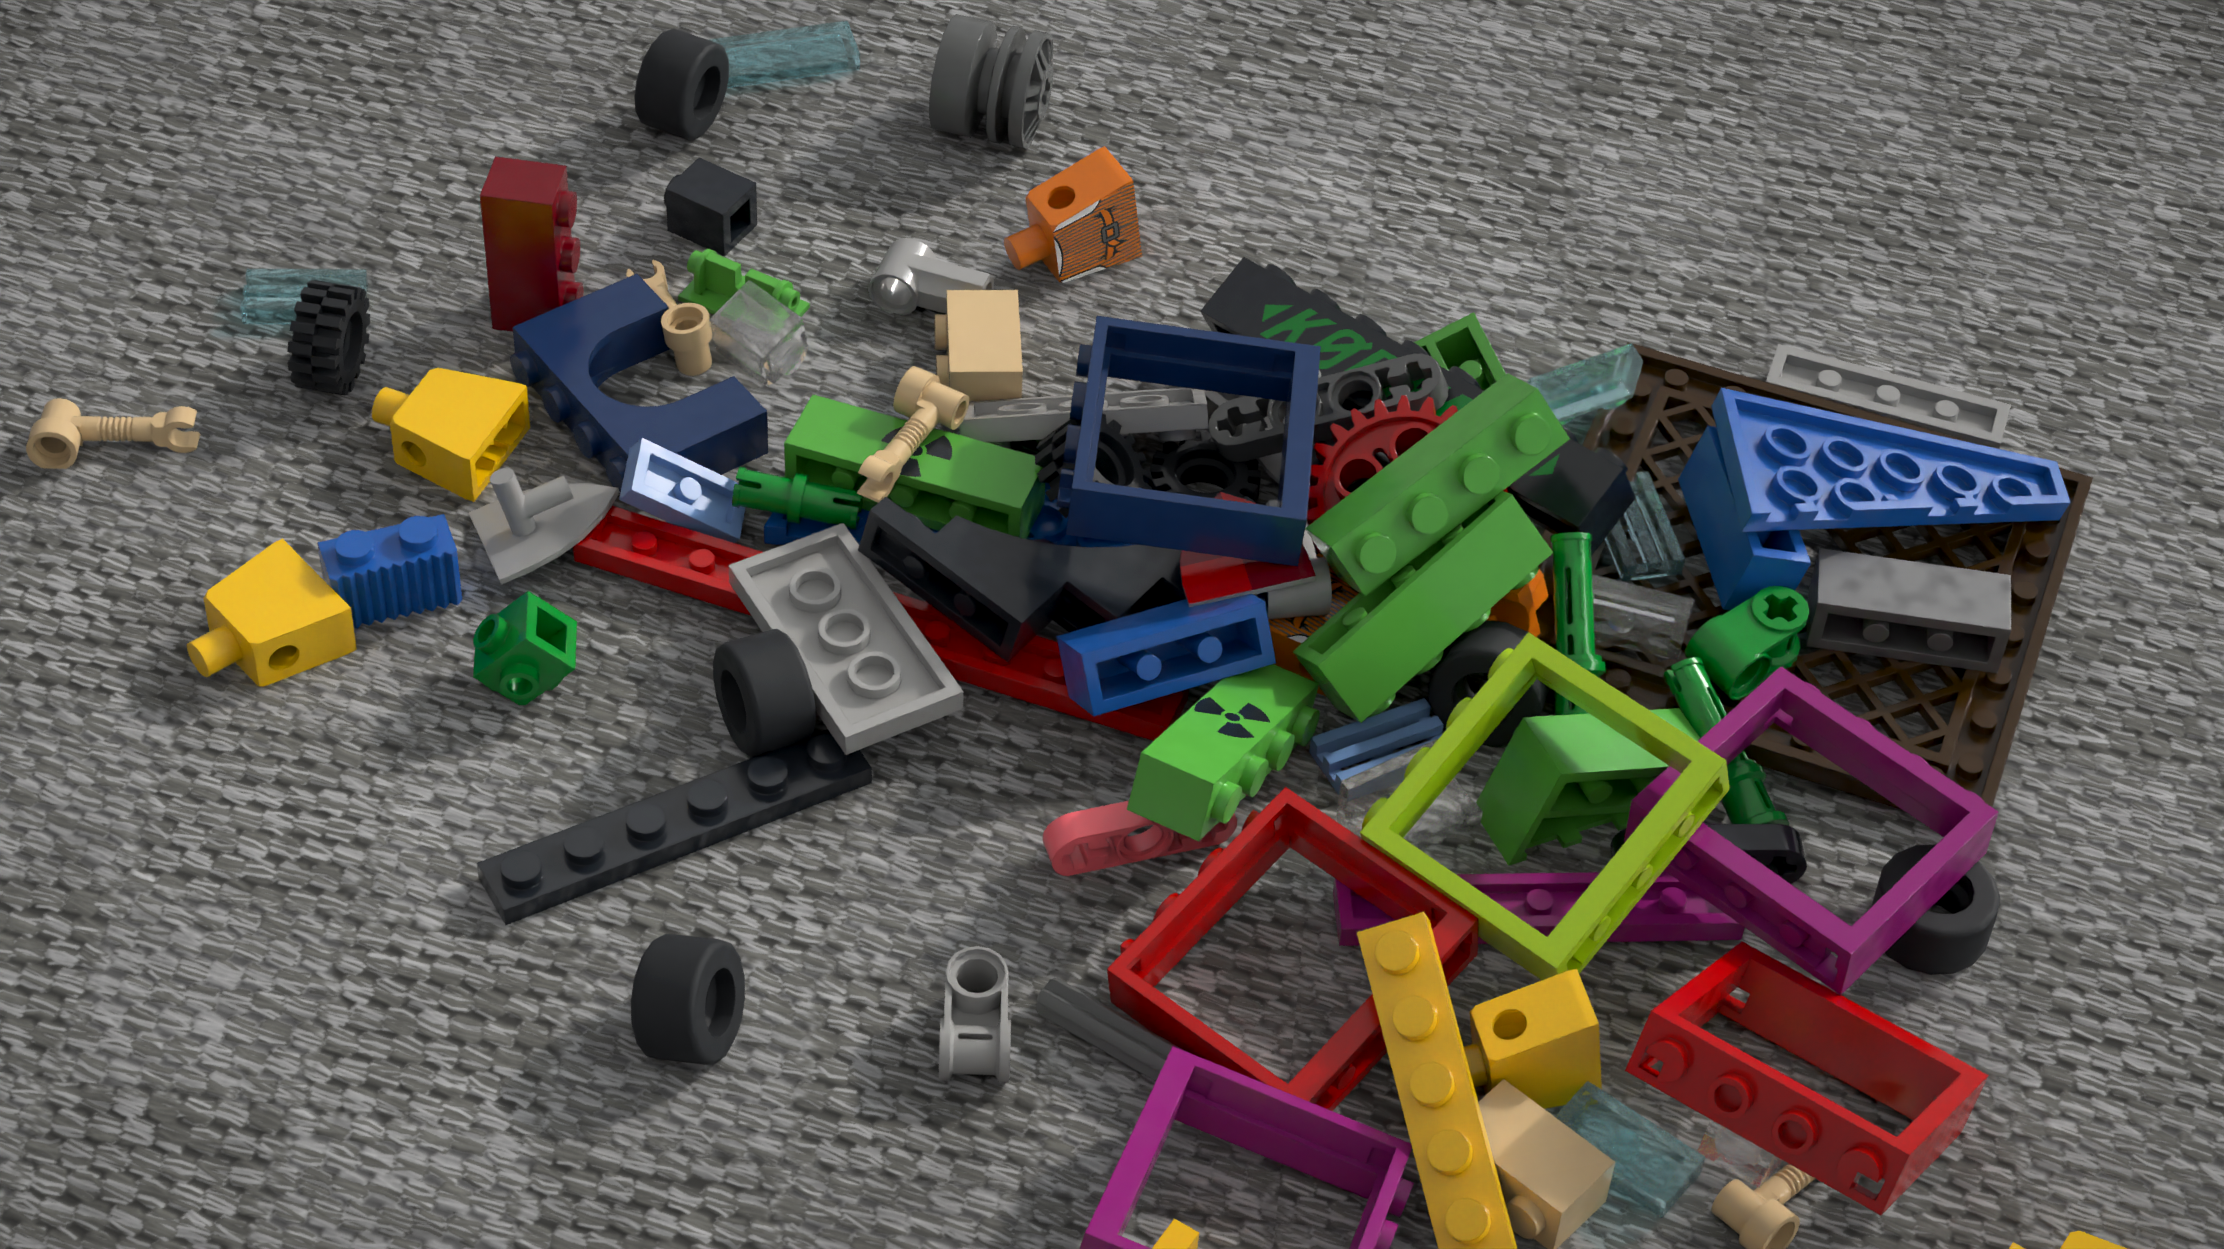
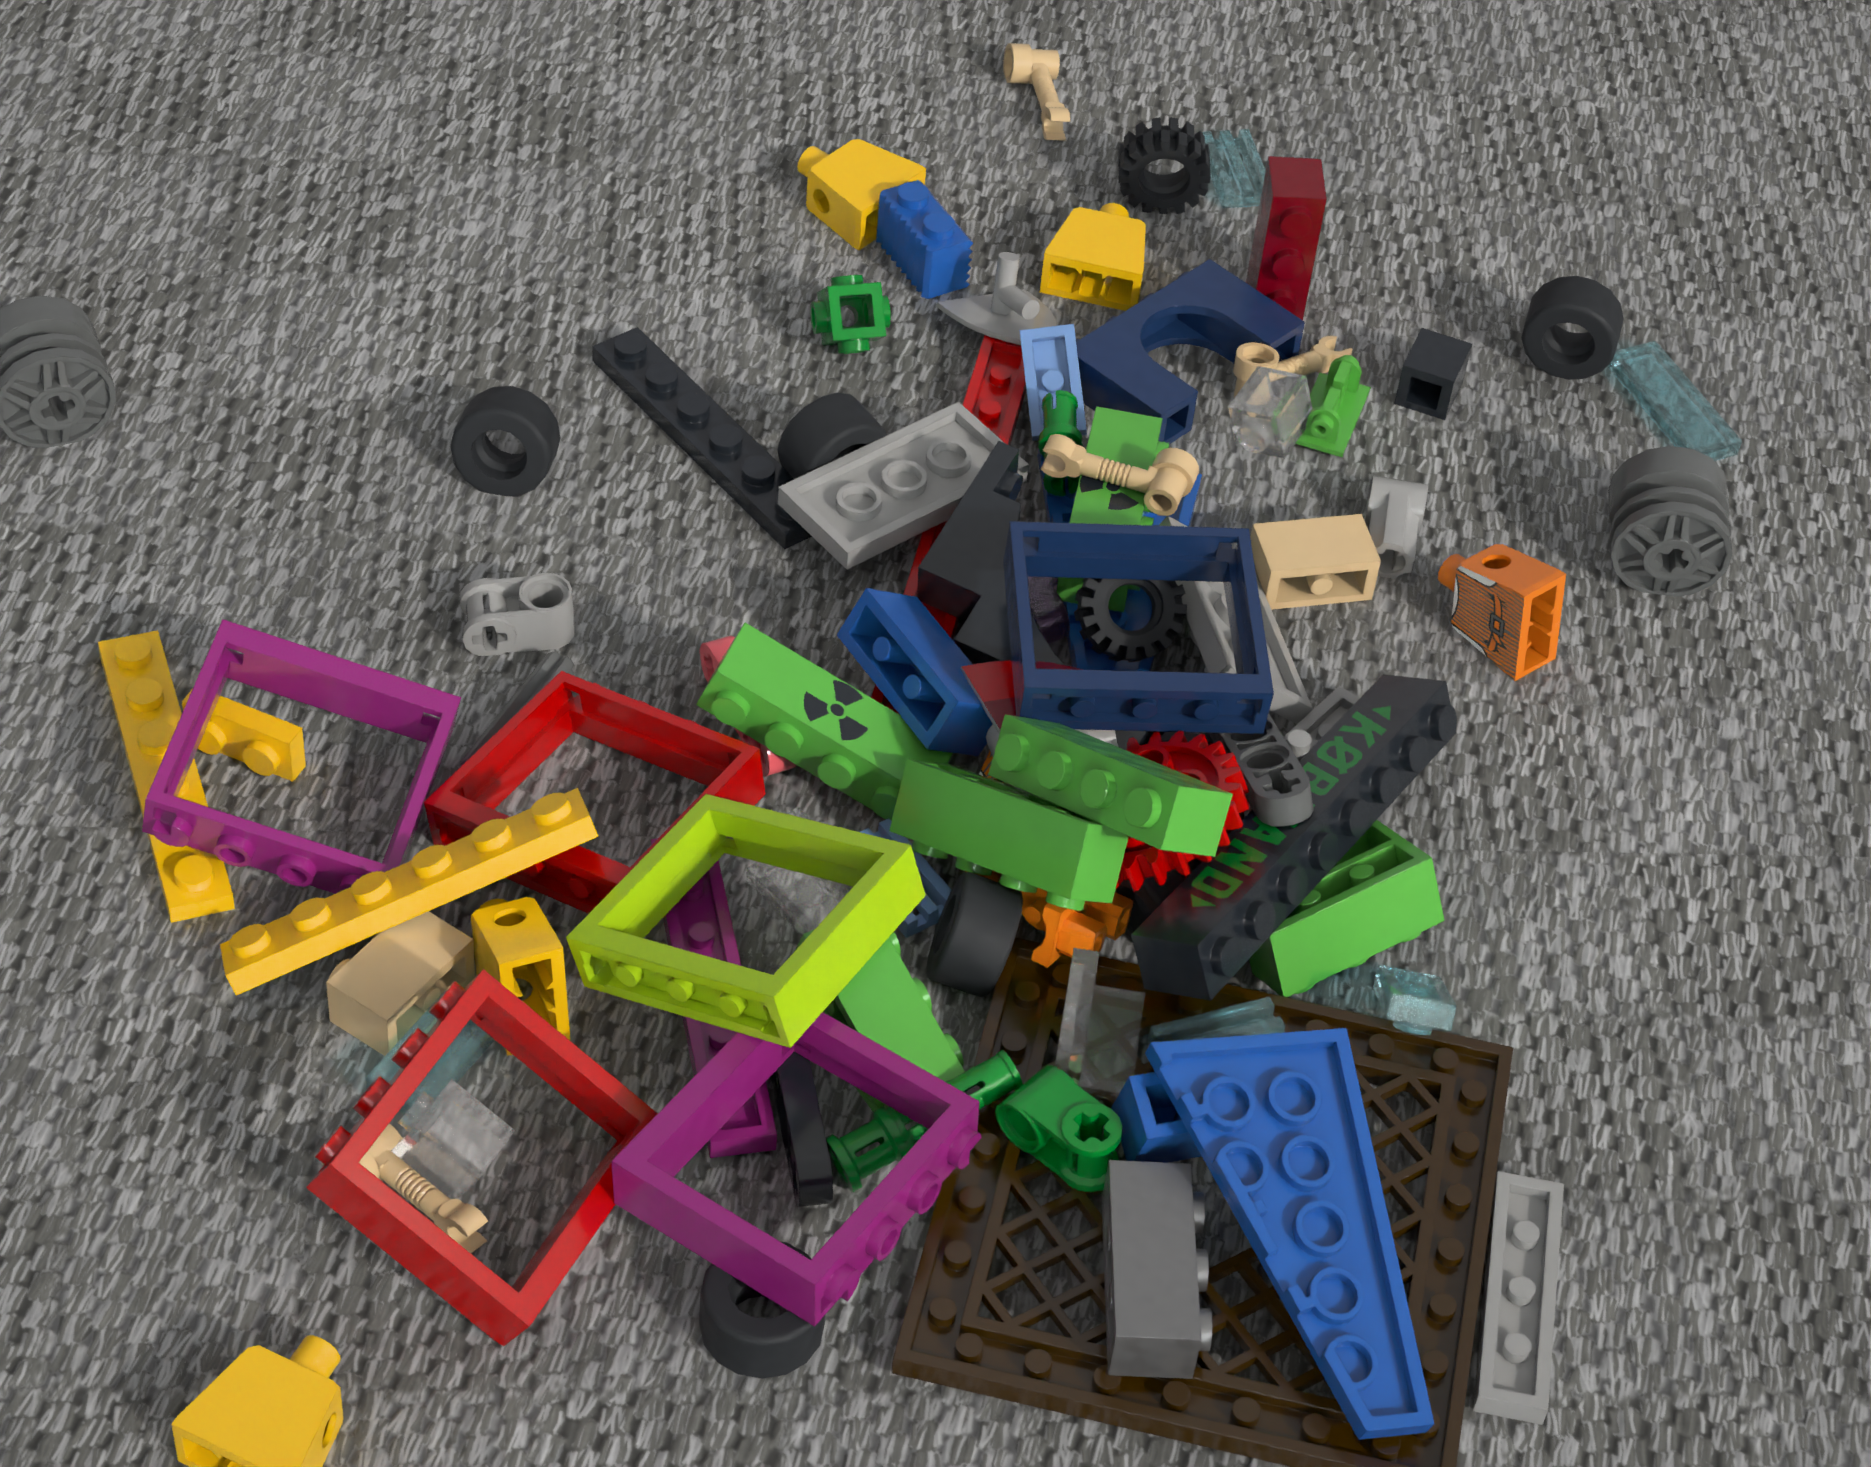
camera: 80 degrees right, 0 degrees up
(1574, 607) = (994, 981): green pin -> none

